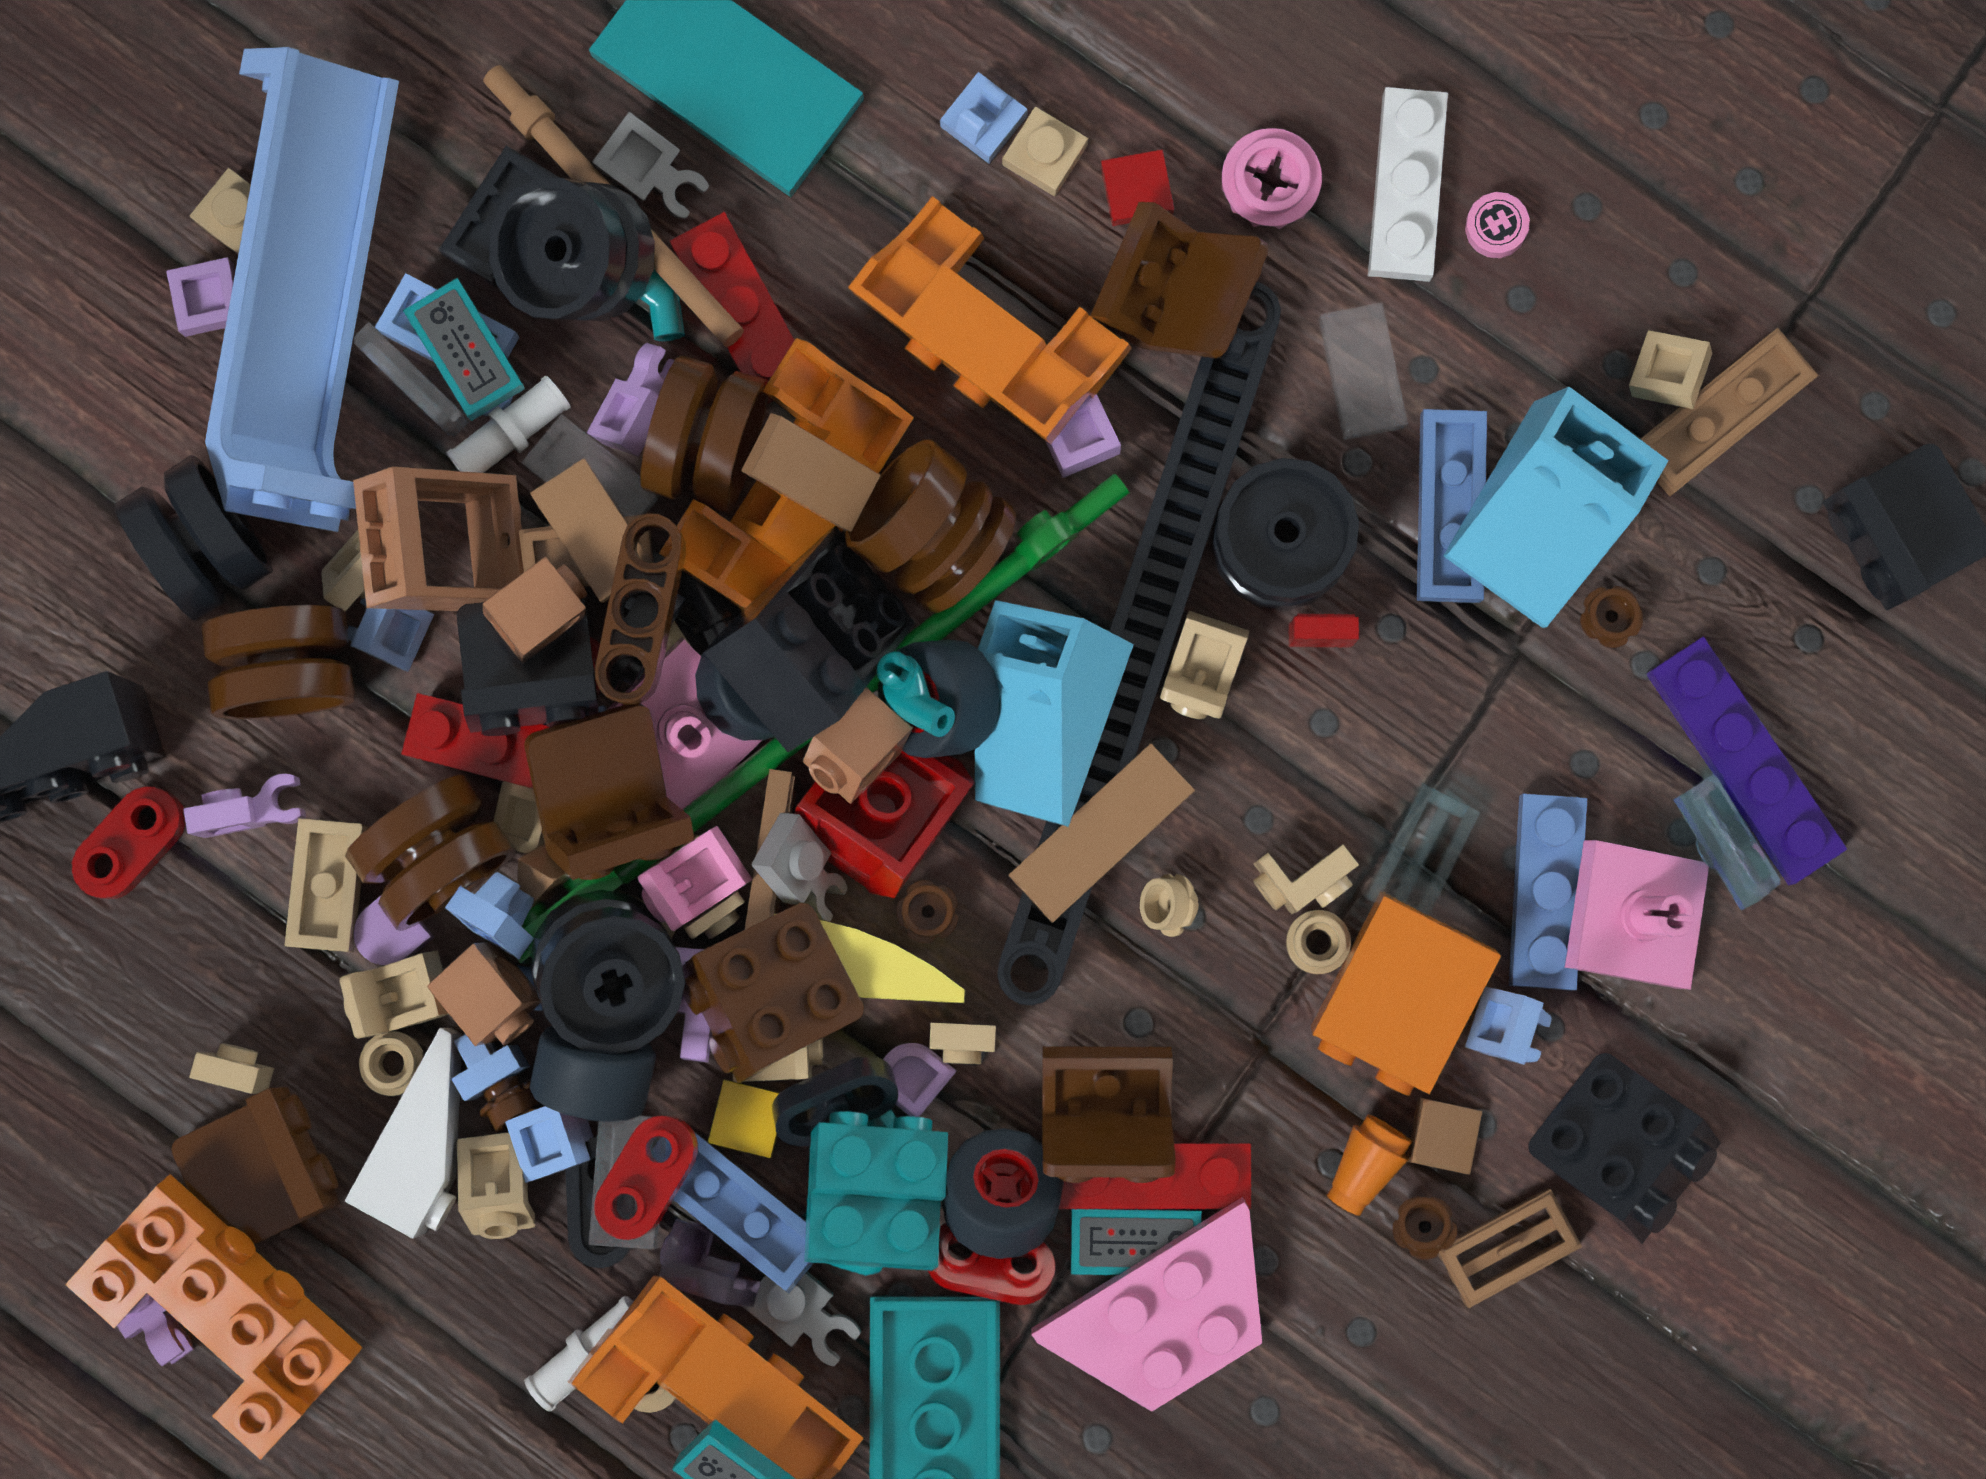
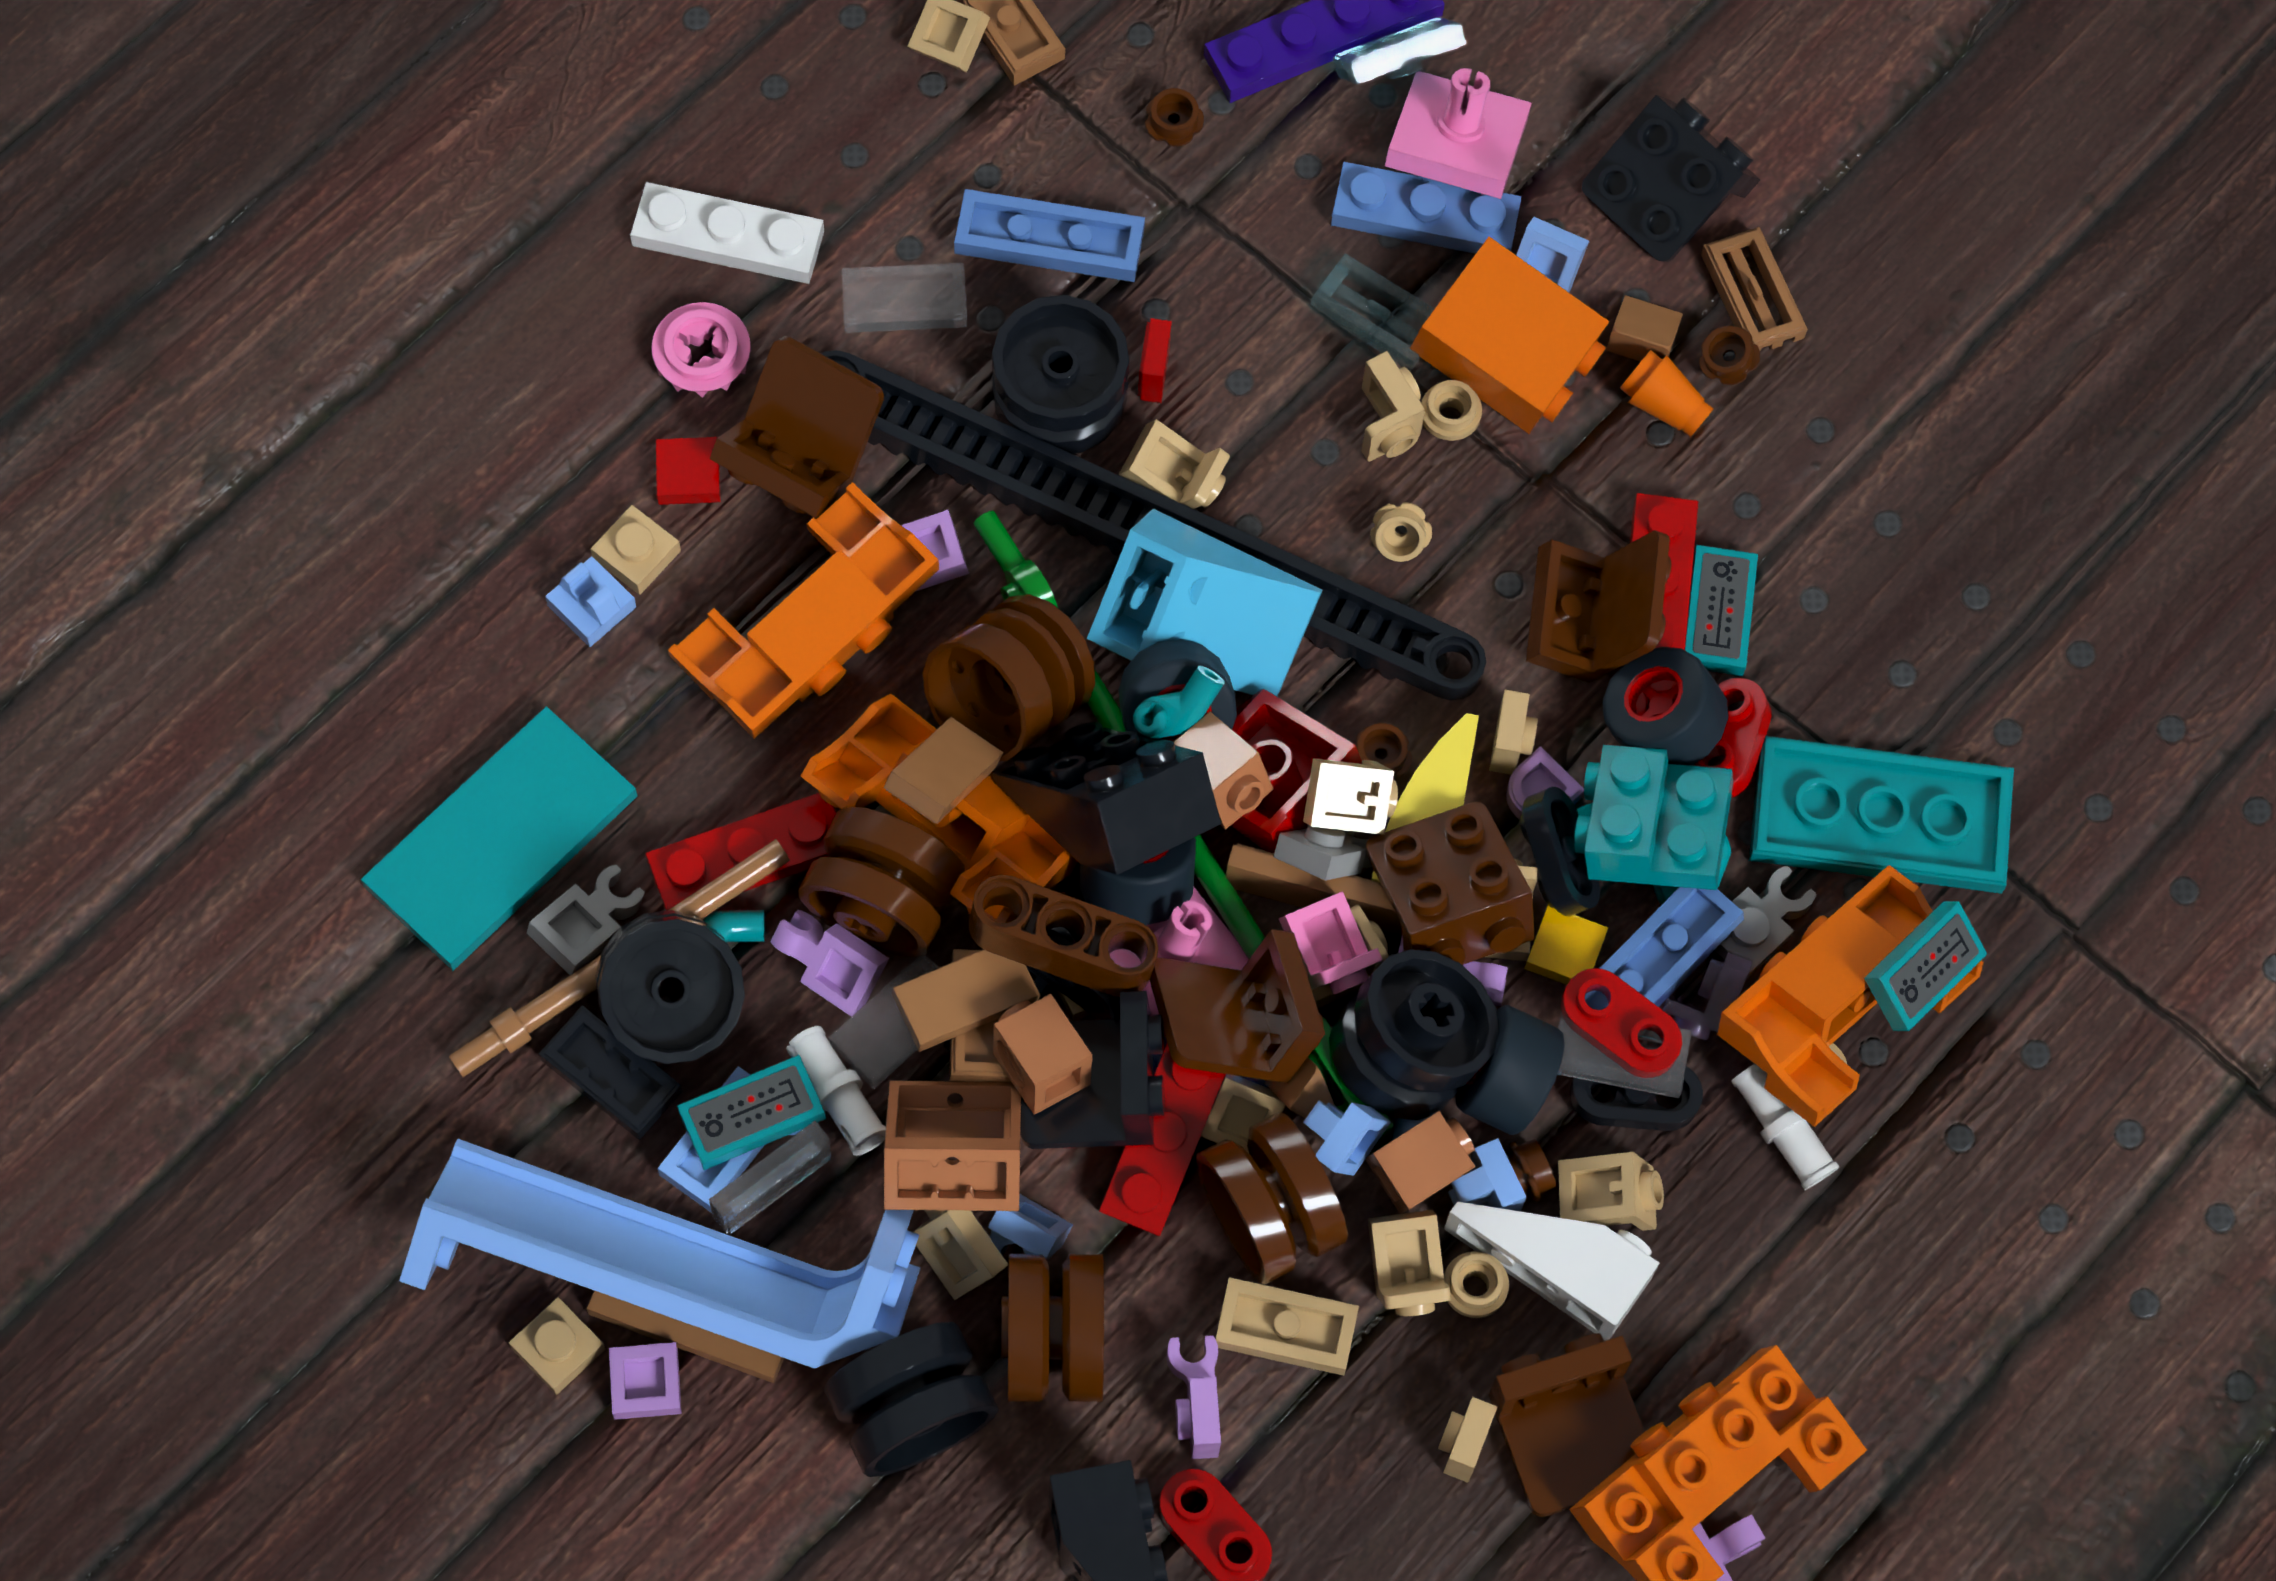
camera: 90 degrees left, 15 degrees down
(381, 942) = (1340, 1274): lavender tile -> none
(548, 1142) = (1573, 1127): light blue tile -> none
(847, 881) = (1350, 796): none -> bracket
(1101, 833) = (1317, 553): medium nougat tile -> none
(1167, 1315) = (1791, 583): bright pink wing -> none
(1497, 225) = (781, 162): bright pink tile -> none
(1554, 504) = (1065, 136): medium azure slope -> none

